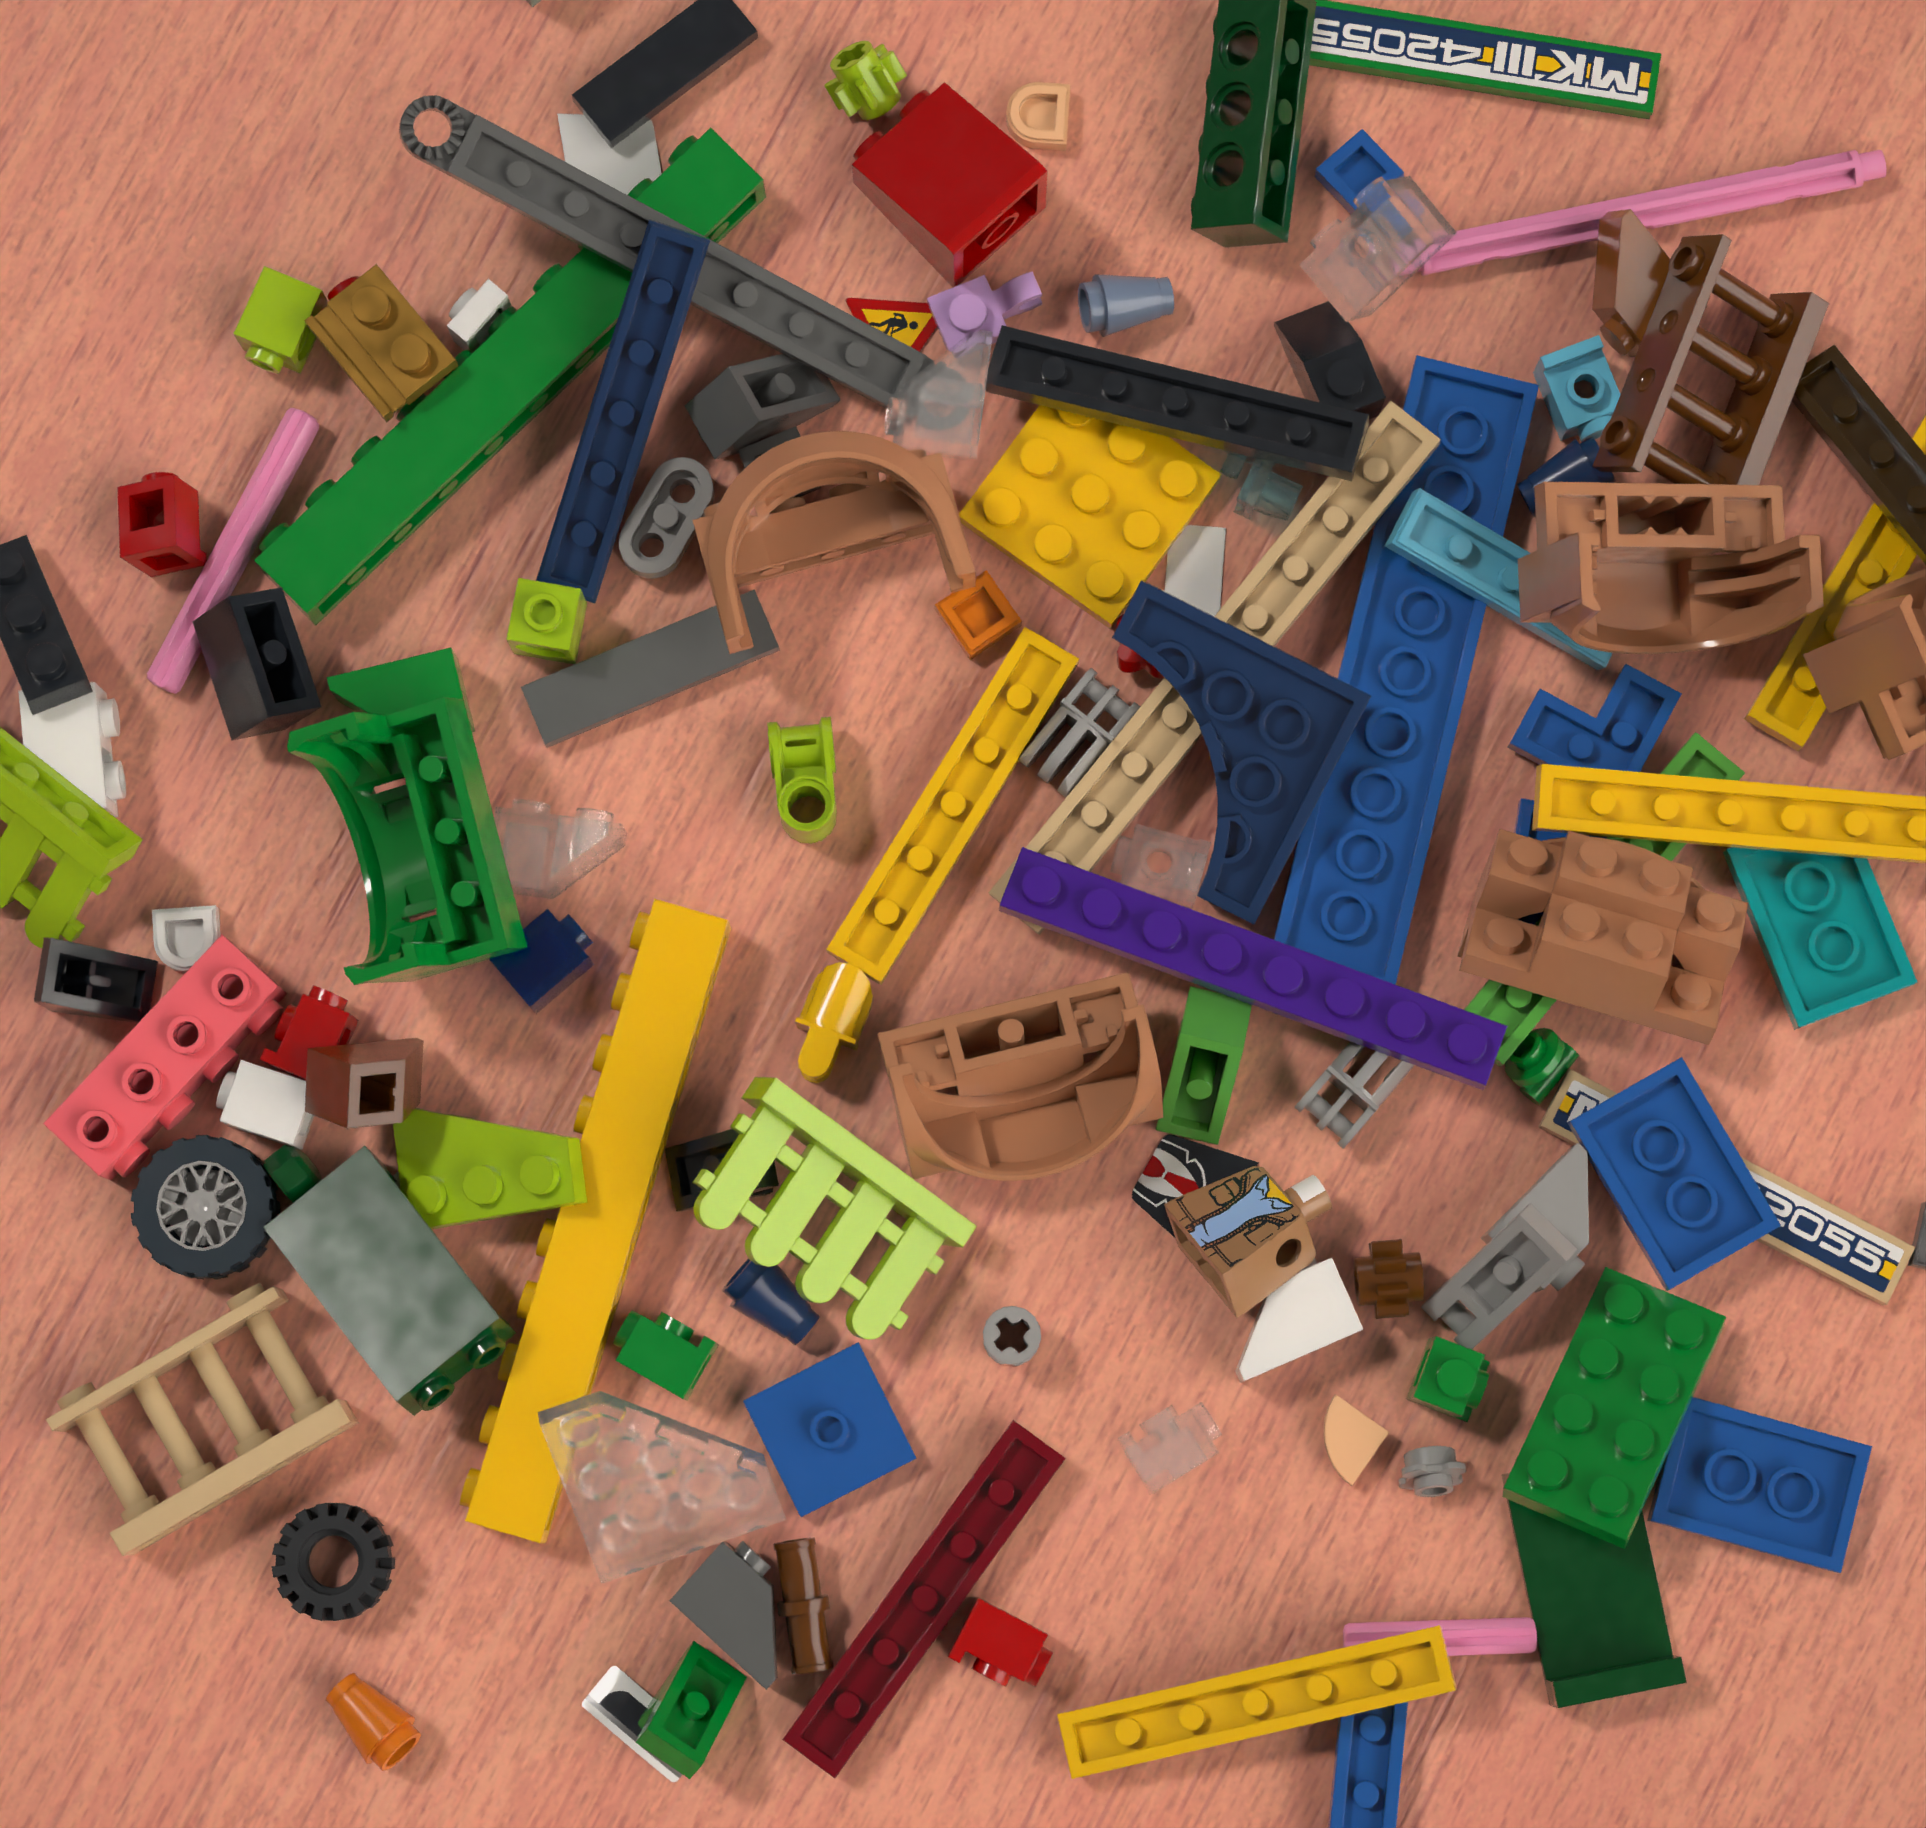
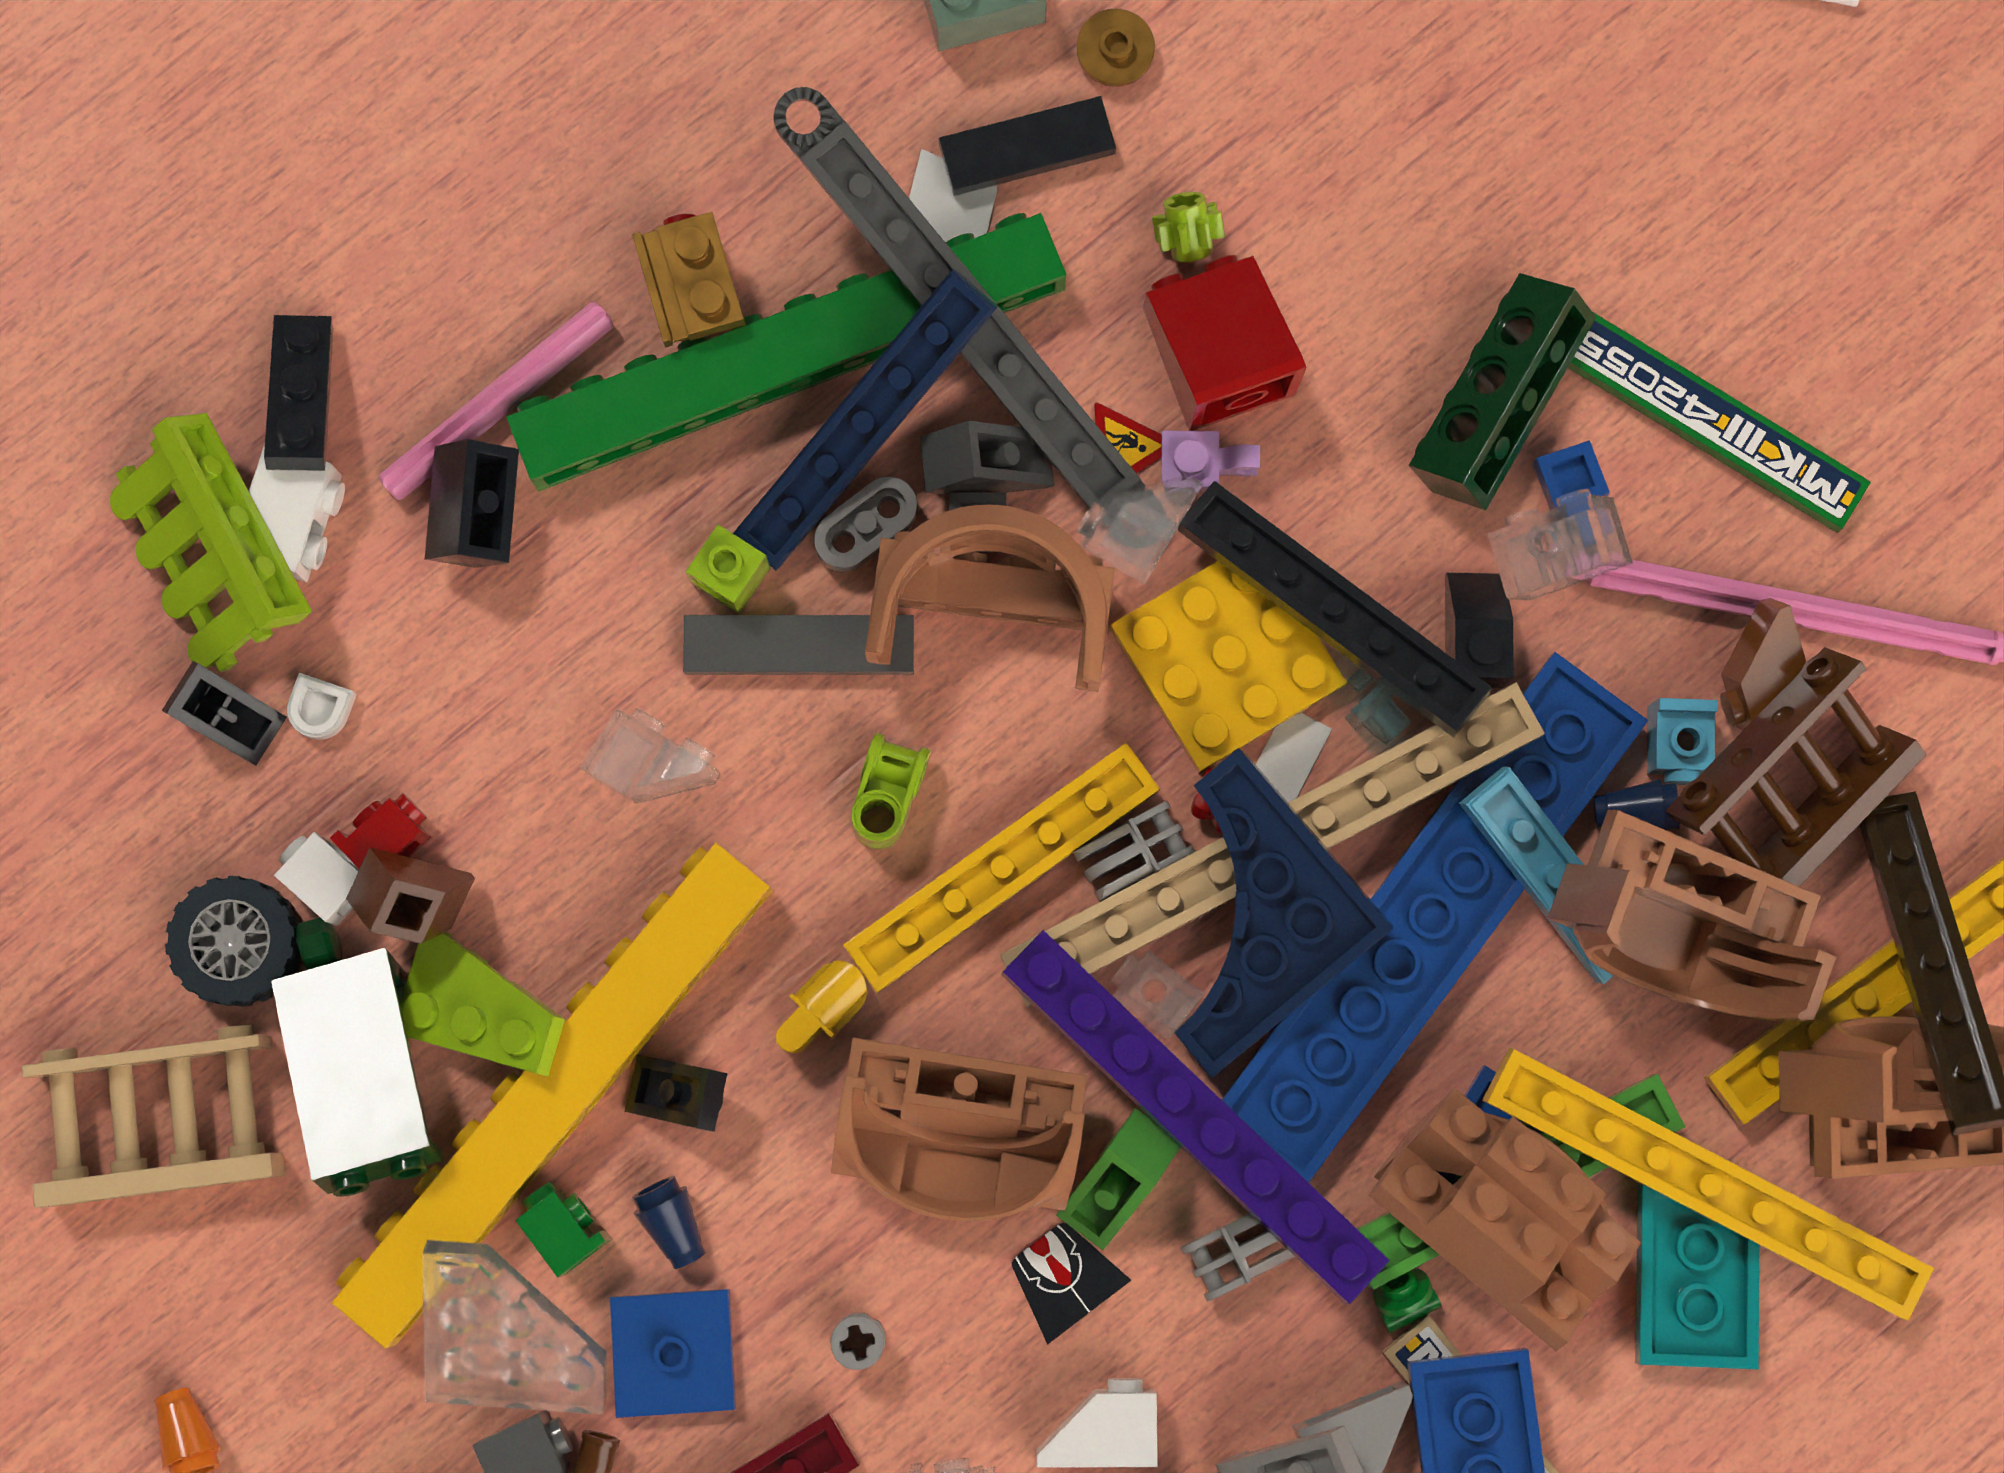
camera: 20 degrees right, 0 degrees up
(160, 525) = (443, 354): red brick -> none
(166, 1059) = (256, 803): coral brick -> none
(274, 322) = (608, 226): lime brick -> none
(293, 1557) = (175, 1281): black tyre -> none
(402, 684) = (590, 586): green slope -> none
(420, 842) = (540, 711): green piece -> none
(475, 313) = (780, 286): white plate -> none
(549, 963) = (604, 852): clear blue brick -> none
(811, 1179) = (731, 1146): lime fence -> none
(978, 615) = (1092, 716): orange tile -> none
(1039, 115) = (1322, 316): light nougat tile -> none
(1123, 302) = (1325, 502): sand blue cone -> none
(1248, 1233) = (1094, 1341): medium nougat torso -> none
(1388, 1279) = (1198, 1430): reddish brown gear -> none
(1614, 740) = (1579, 1050): blue plate -> none

